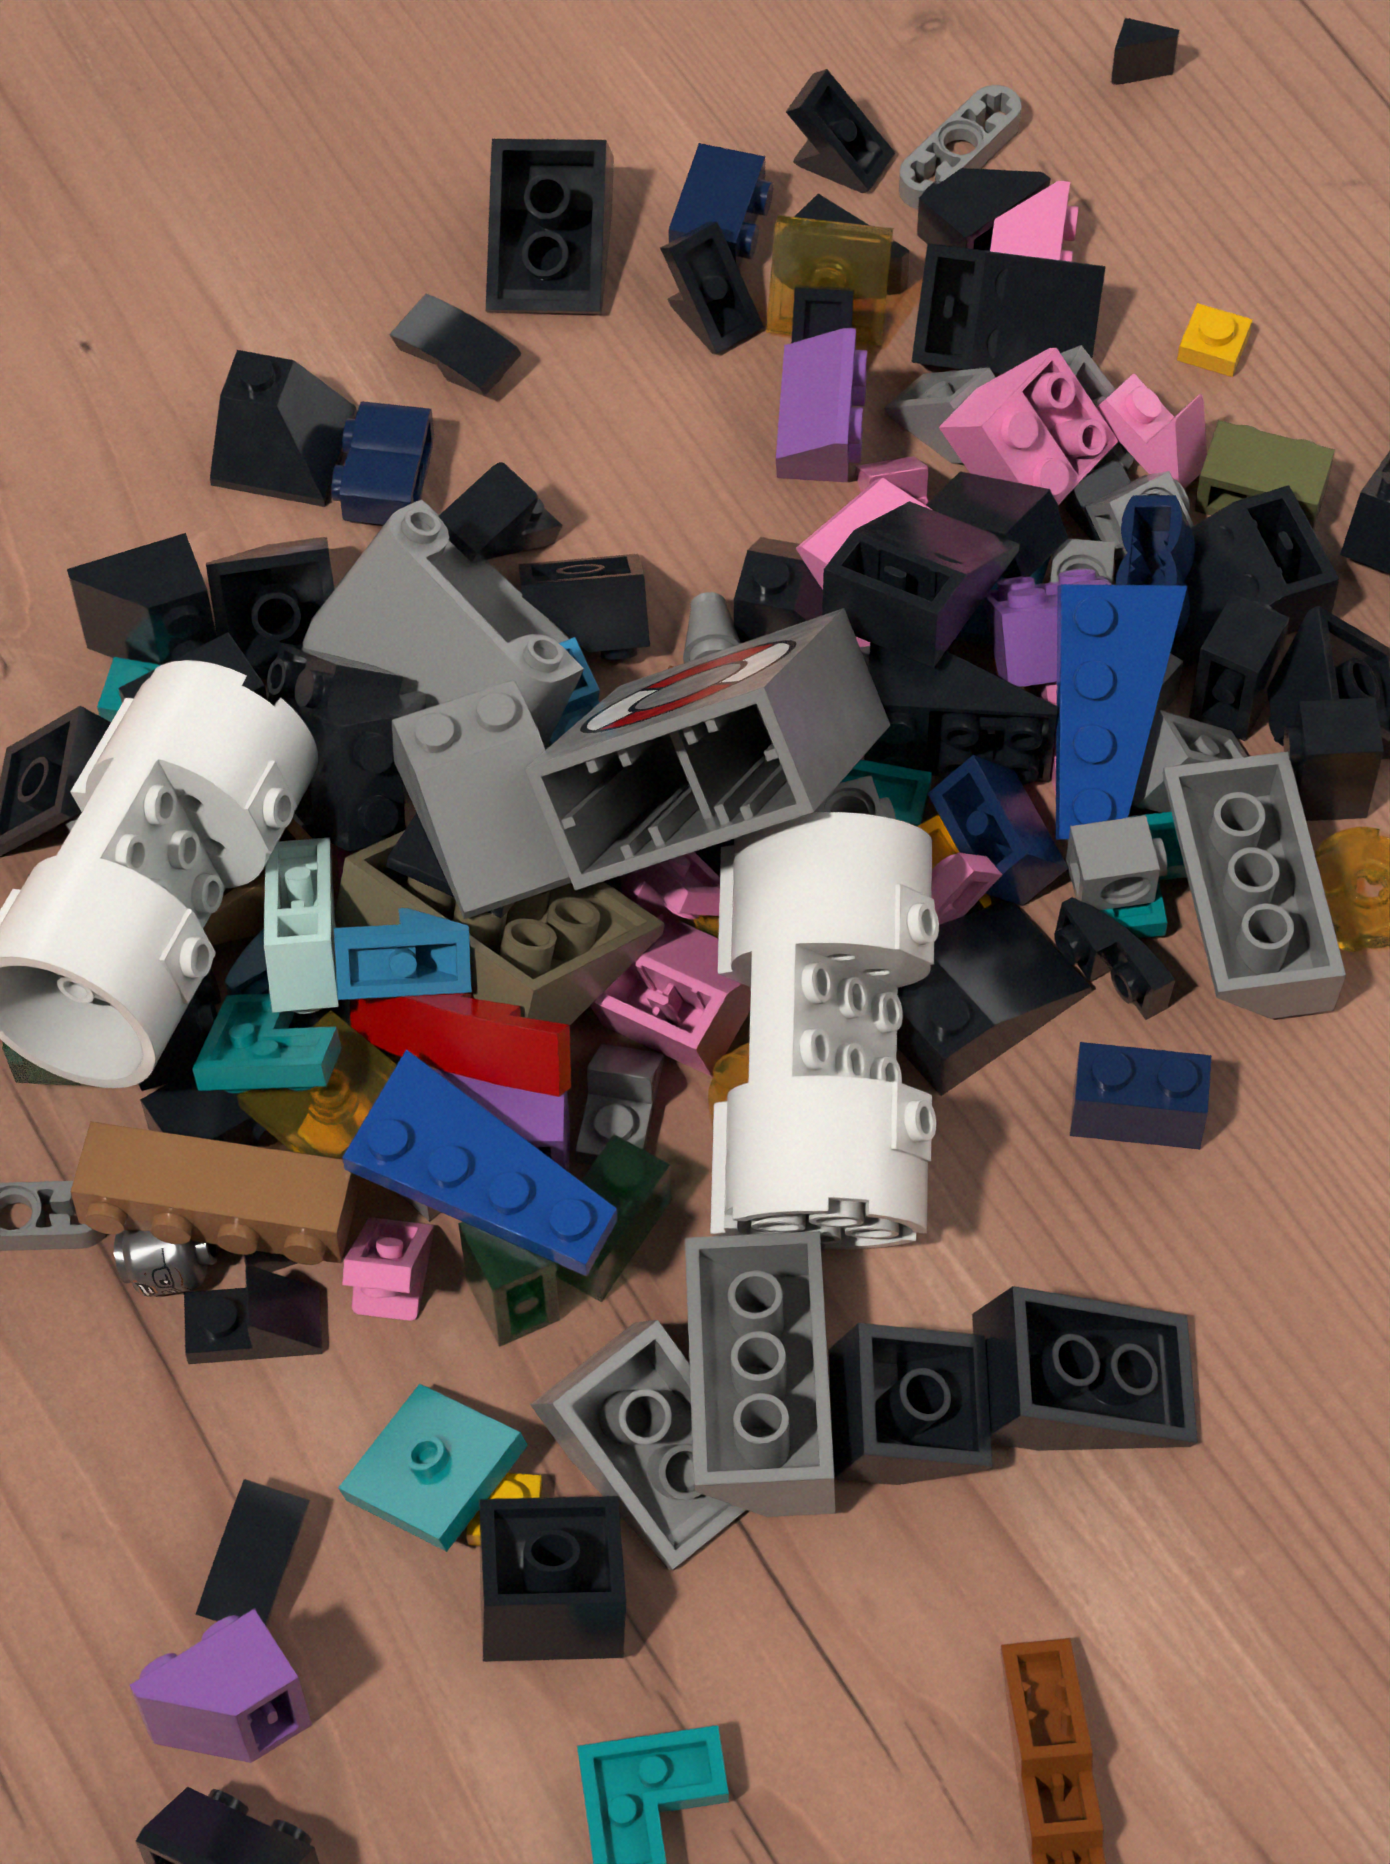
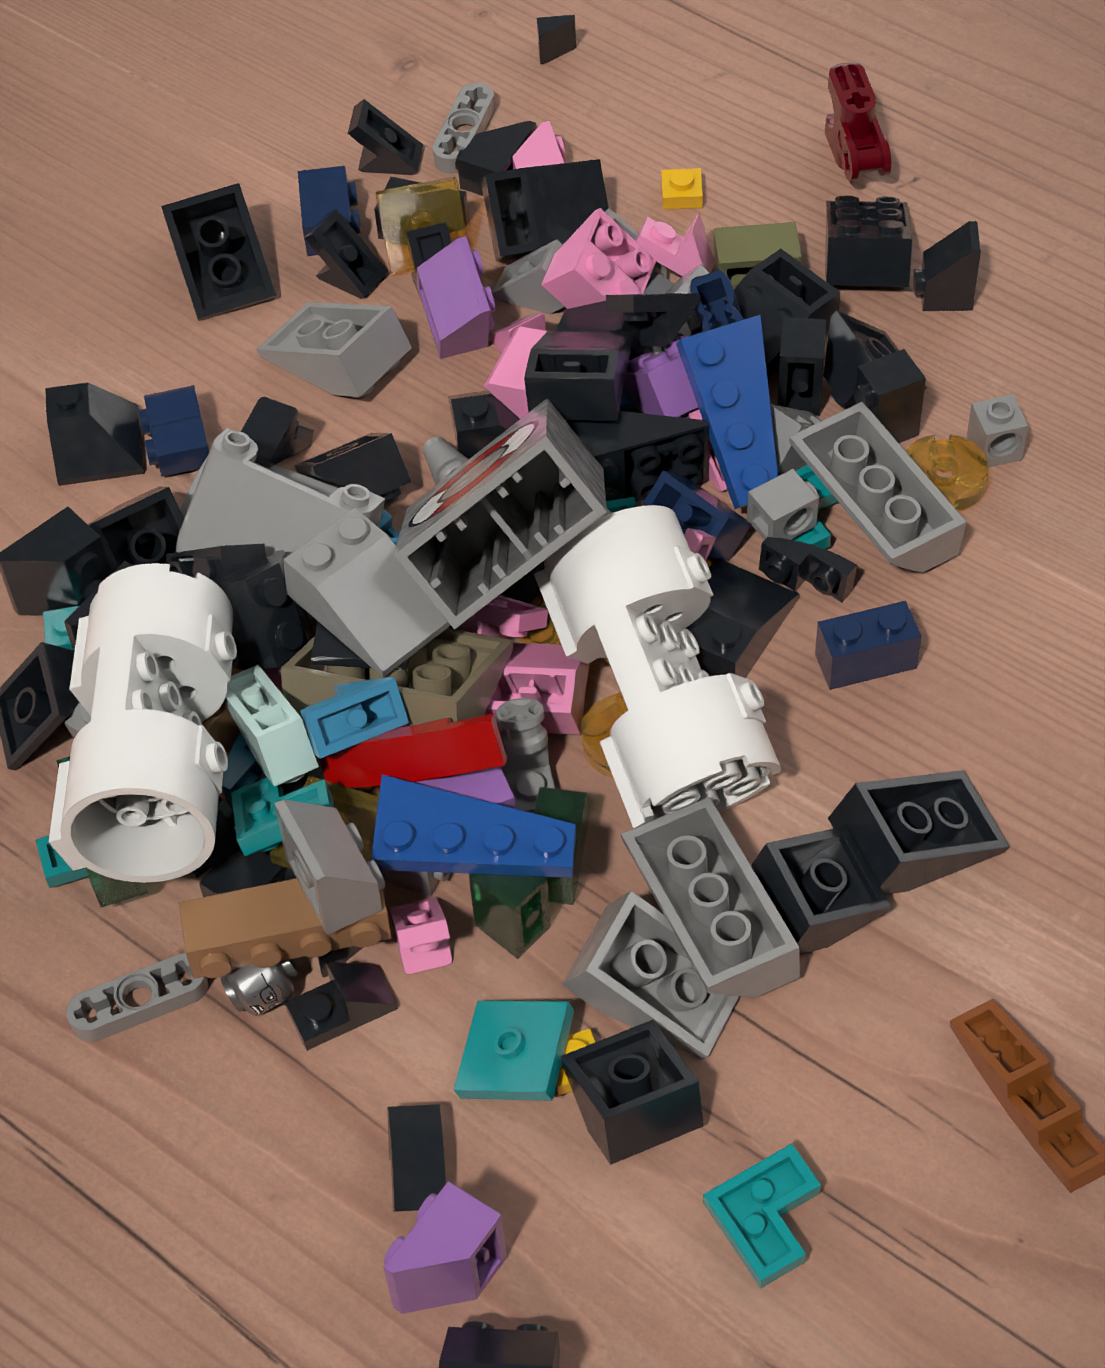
camera: 20 degrees left, 5 degrees down
(284, 1144) = (329, 864): none -> light grey slope
(455, 342) = (193, 342): black slope -> none
(625, 1045) = (522, 726): none -> light grey wheel
(645, 416) = (339, 346): none -> light grey slope
(1065, 526) = (658, 314): none -> black slope

